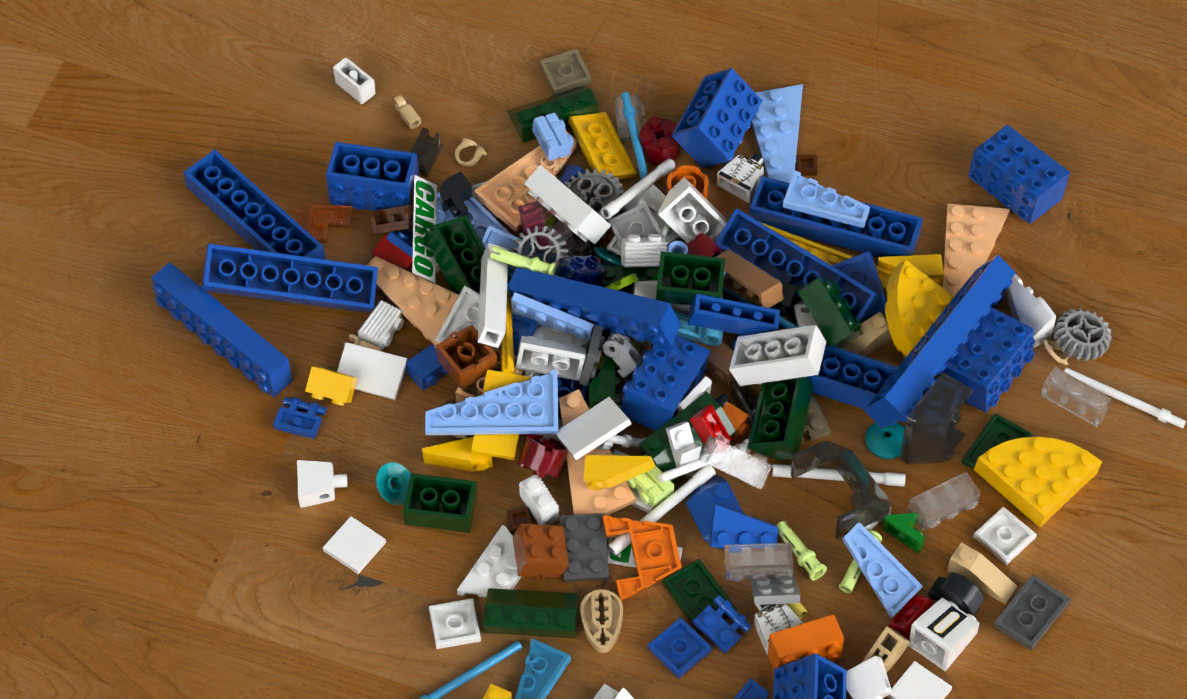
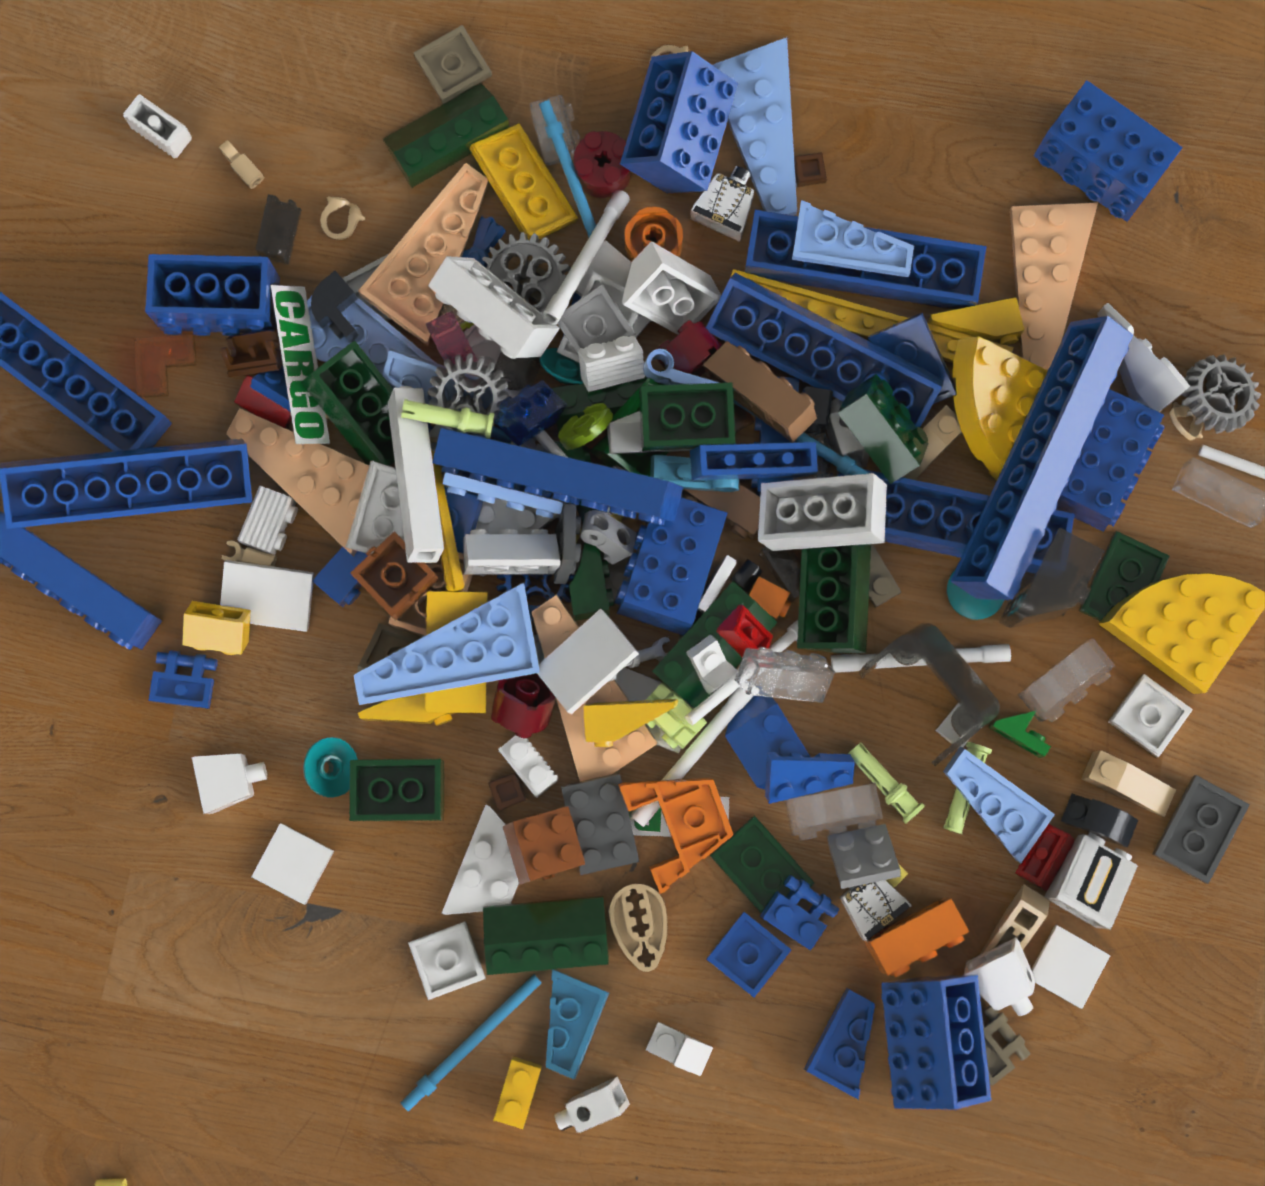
camera: 10 degrees left, 25 degrees up
(552, 136) = (453, 184): light blue brick -> none

